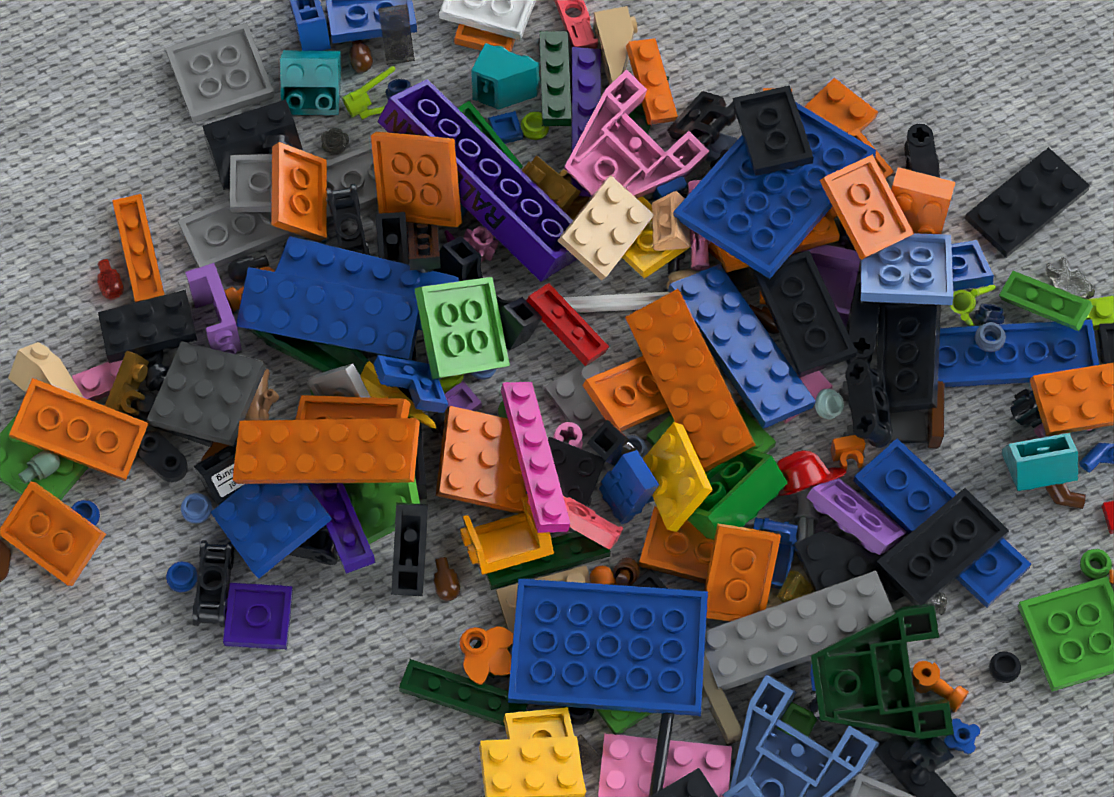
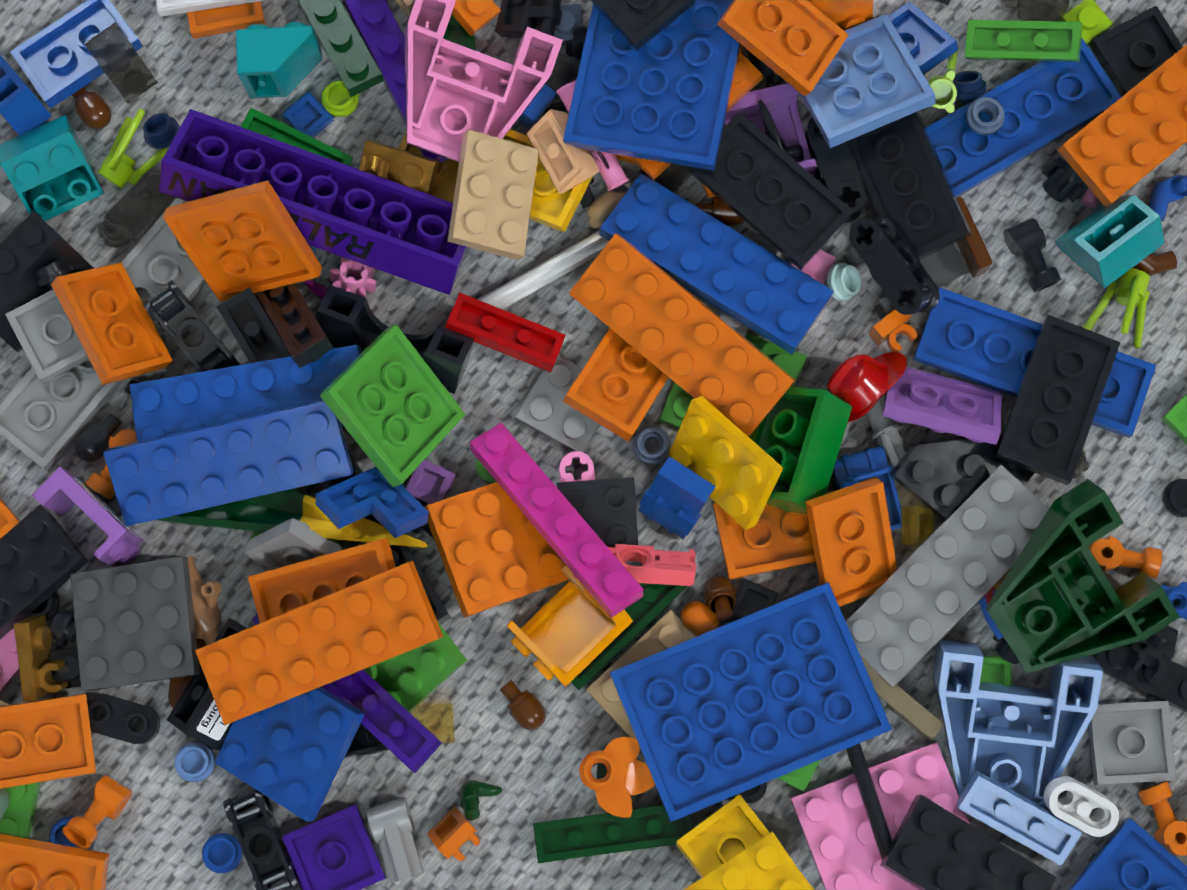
camera: 25 degrees left, 15 degrees up
(124, 503) = (108, 800): none -> orange leg
(308, 621) = (393, 831): none -> light grey piece
(348, 639) = (452, 833): none -> orange tile
(356, 132) = (139, 207): none -> clear smoke plate
(378, 620) = (470, 796): none -> dark green animal
(381, 569) = (438, 720): none -> clear yellow tile
(409, 549) = (472, 706): black slope -> none
(610, 443) = (636, 463): black leg -> none
(828, 280) = (771, 131): none -> black bar
(978, 438) = (1027, 241): none -> black leg
(1037, 506) = (1130, 292): none -> lime plant

